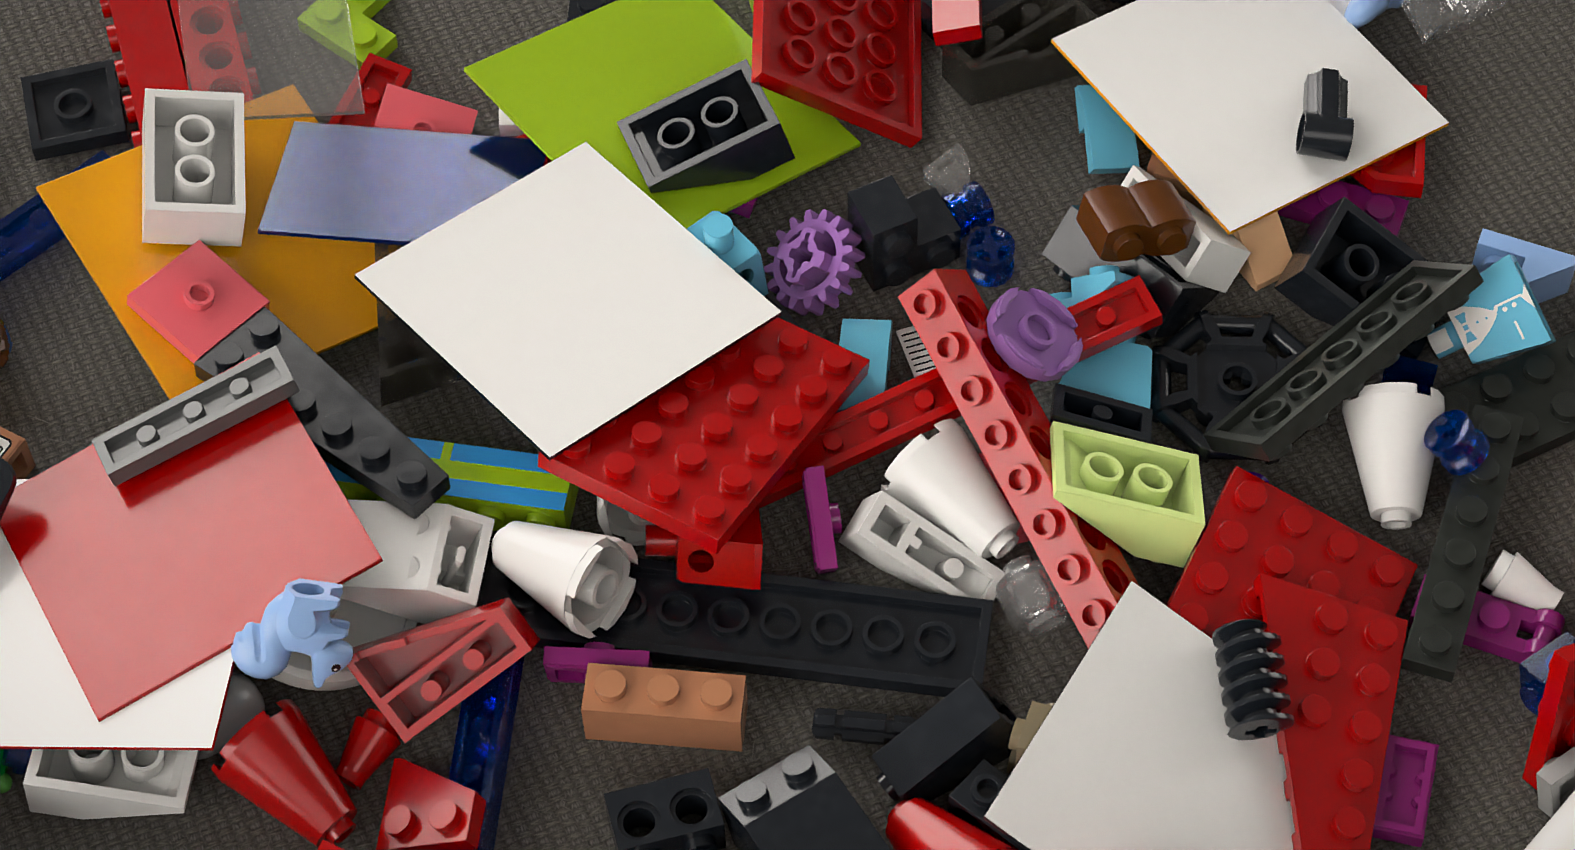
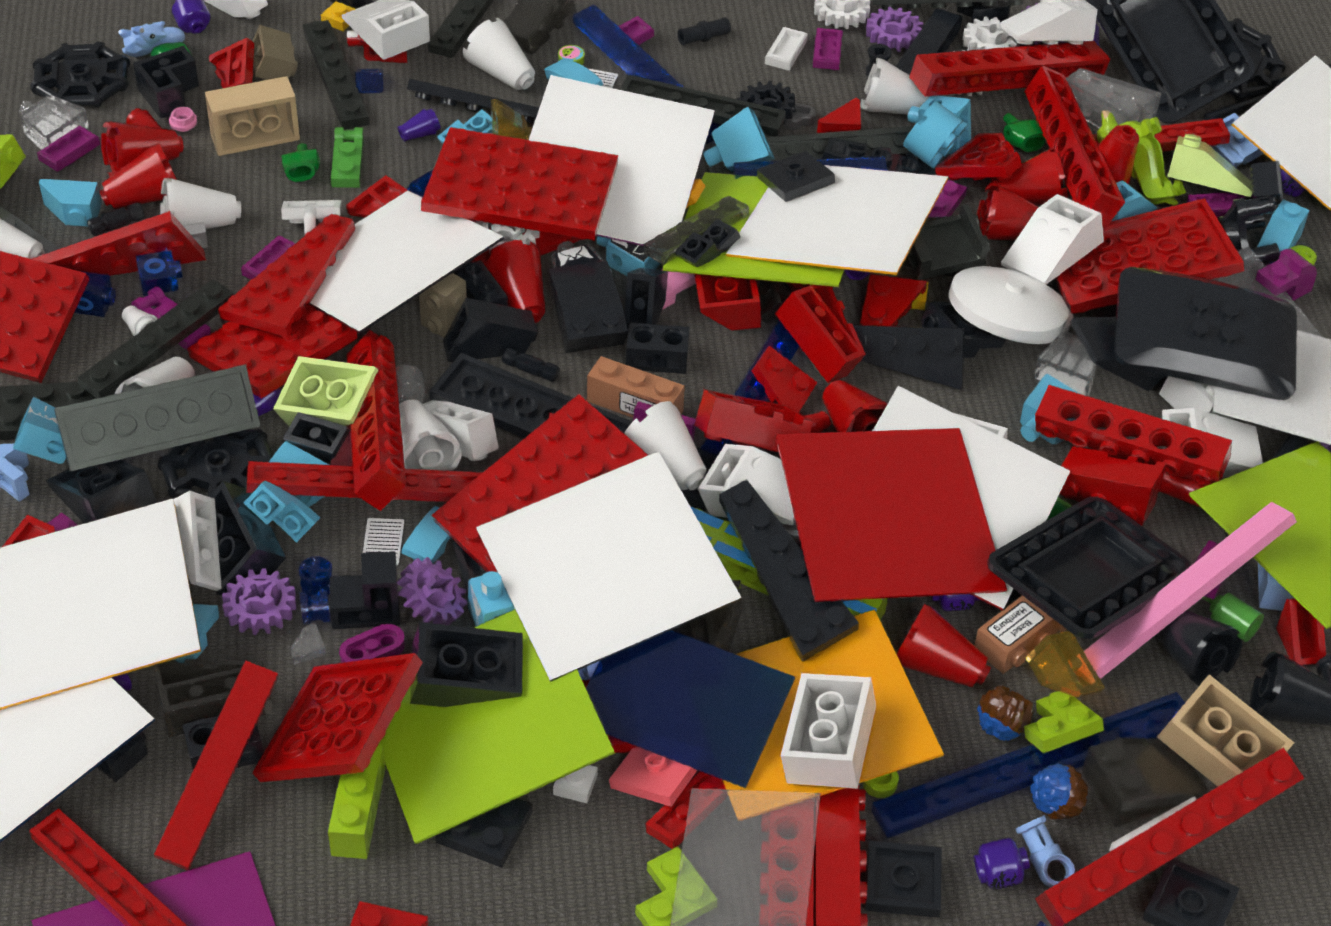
camera: 165 degrees left, 10 degrees down
(76, 398) = (942, 651): none -> red cone
(195, 416) = (865, 560): plate -> none
(196, 301) = (848, 655): coral plate -> none
(296, 623) = (833, 416): light blue animal -> none
(822, 519) = (506, 440): magenta plate -> none
(856, 174) = (372, 642): none -> magenta plate
(1034, 334) = (333, 458): medium lavender tile -> none
(1040, 190) = (259, 601): none -> medium lavender gear
(1135, 220) = (227, 512): reddish brown brick -> none
(1250, 681) = (325, 278): black piece -> none
(1324, 124) = (65, 541): black piece -> none
(1456, 442) = (126, 367): clear blue wheel -> none

